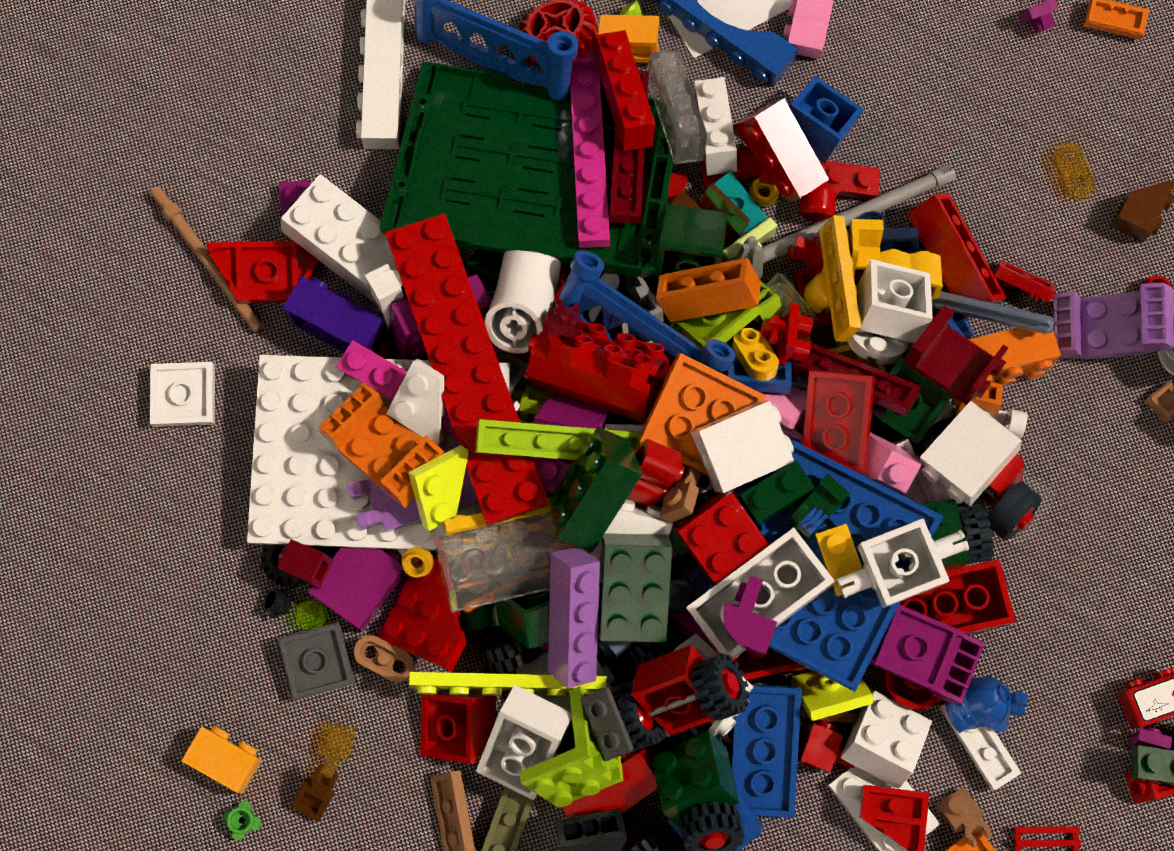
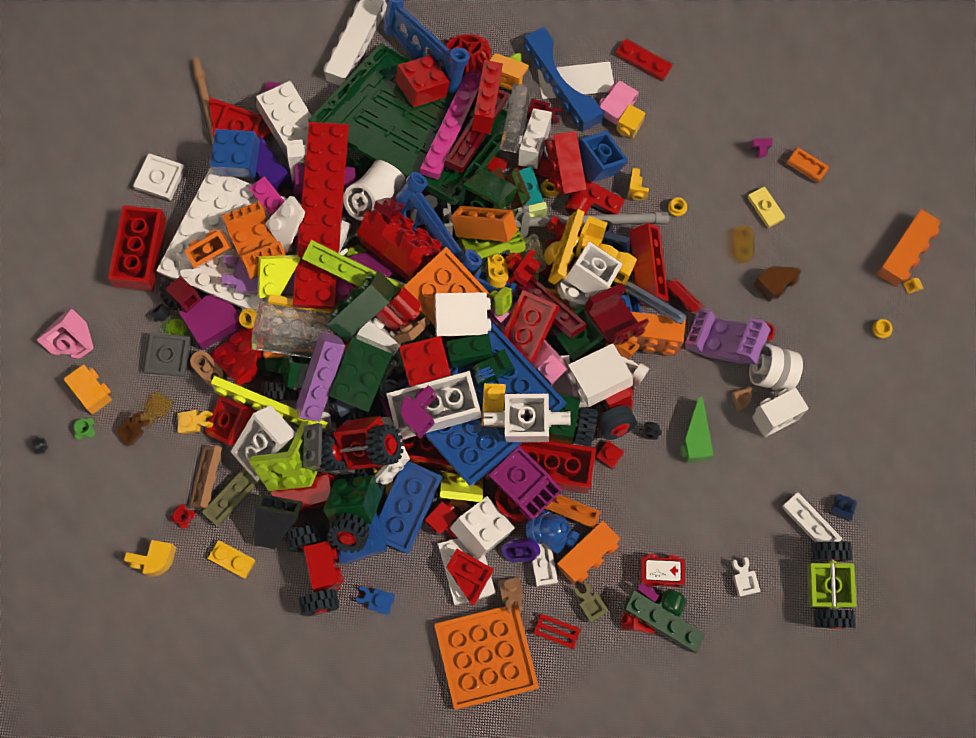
camera: 20 degrees right, 5 degrees down
(155, 690) = (67, 336): none -> bright pink slope
(201, 517) = (137, 248): none -> red brick
(293, 321) = (235, 153): none -> blue brick
(318, 484) = (208, 249): none -> orange brick
(396, 746) = (192, 420): none -> yellow plate
(514, 100) = (422, 81): none -> red brick
(705, 71) = (541, 105): none -> dark red plate
(784, 397) = (502, 300): none -> lime tile
(839, 47) = (630, 121): none -> yellow brick
(884, 141) = (635, 190): none -> yellow bracket
(953, 749) = (521, 550): none -> dark purple plate
(960, 143) = (677, 202): none -> yellow plate
(1009, 659) = (574, 510): none -> orange plate
(1015, 556) = (610, 455): none -> red plate
(1046, 713) = (588, 553): none -> orange brick
(1058, 499) = (651, 430): none -> black plate
(1081, 786) = (592, 605): none -> olive plate
(1082, 103) = (766, 207): none -> light yellow plate
(1126, 484) = (697, 440): none -> bright green slope

